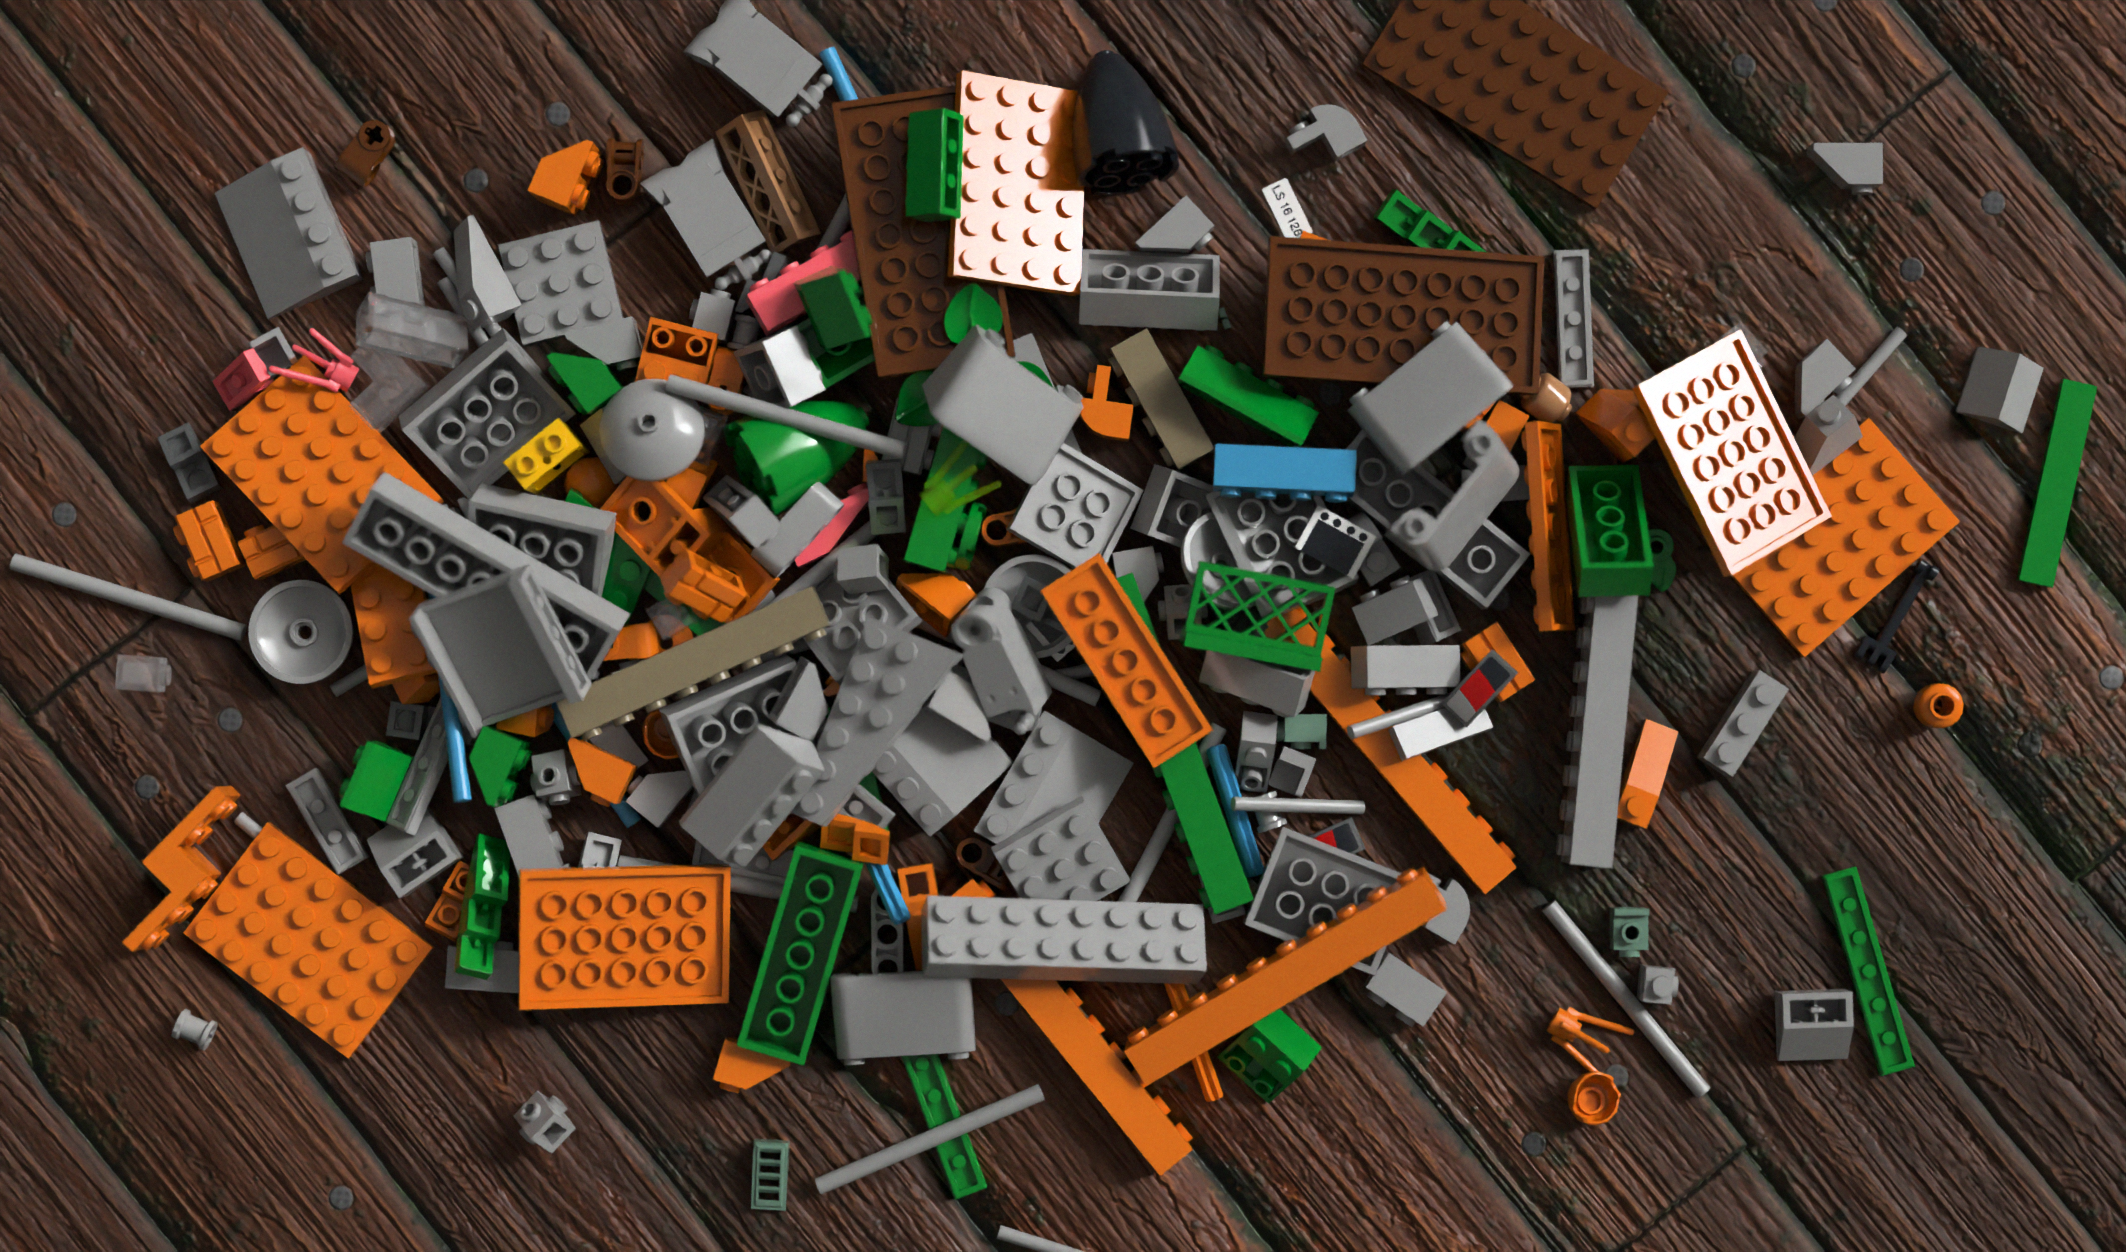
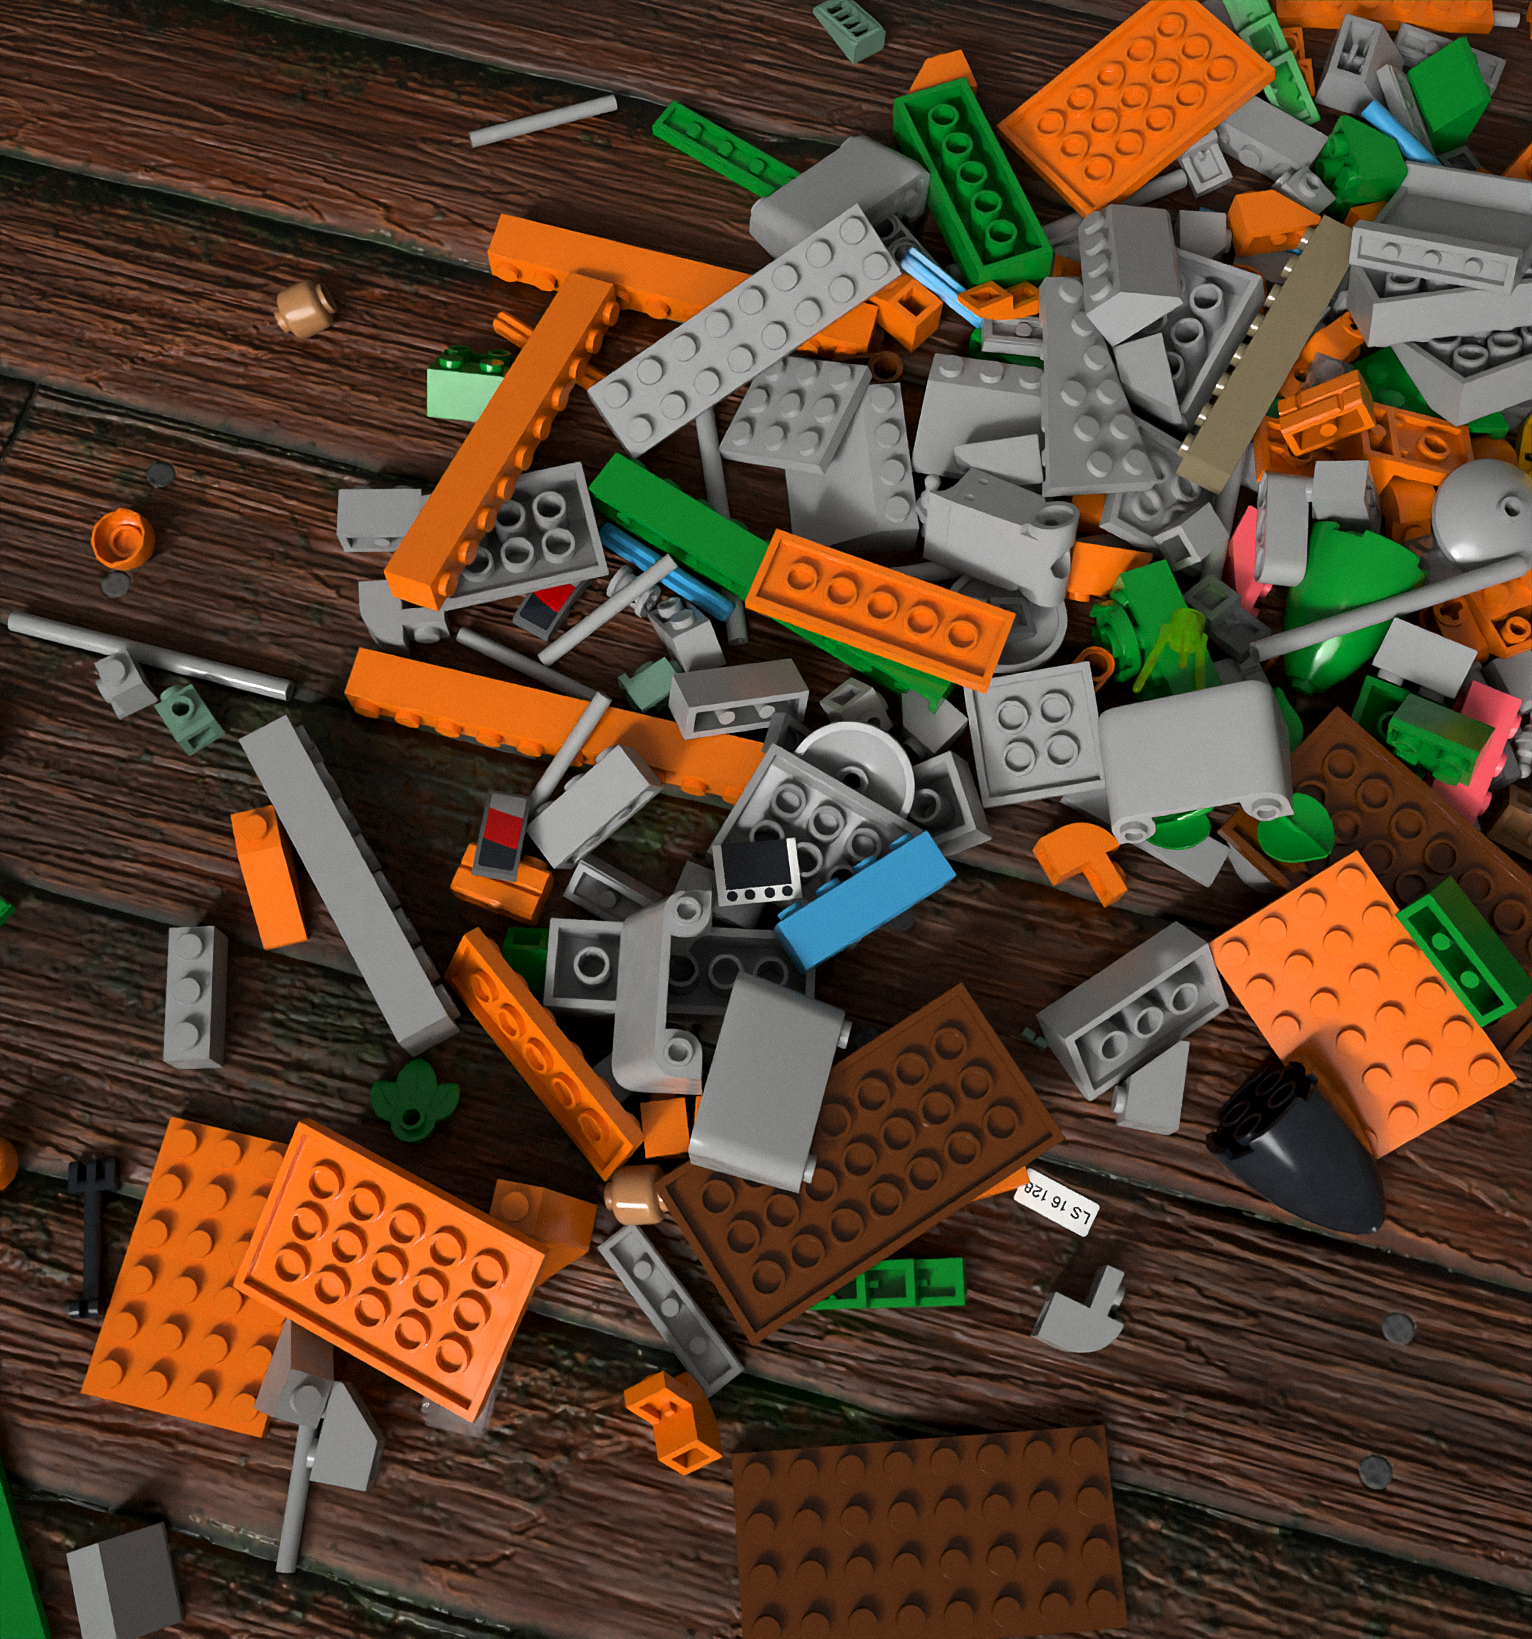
camera: 140 degrees right, 15 degrees down
(929, 1139) = (732, 127): light grey piece -> none
(1161, 400) = (1036, 906): dark tan brick -> none
(1247, 397) = (929, 964): green slope -> none
(1254, 646) = (773, 705): green fence -> none
(1291, 771) = (635, 645): light grey panel -> none
(1350, 1201) = (305, 309): none -> medium nougat head
(1373, 805) = (524, 665): none -> light grey bar
(1395, 610) = (644, 858): light grey brick -> none
(1434, 732) = (521, 762): tile -> none
(1514, 601) = (527, 954): none -> green brick
(1565, 1026) = (195, 588): orange plant -> none
(1609, 531) = (472, 1084): green brick -> none
(1614, 246) = (681, 1420): none -> orange brick

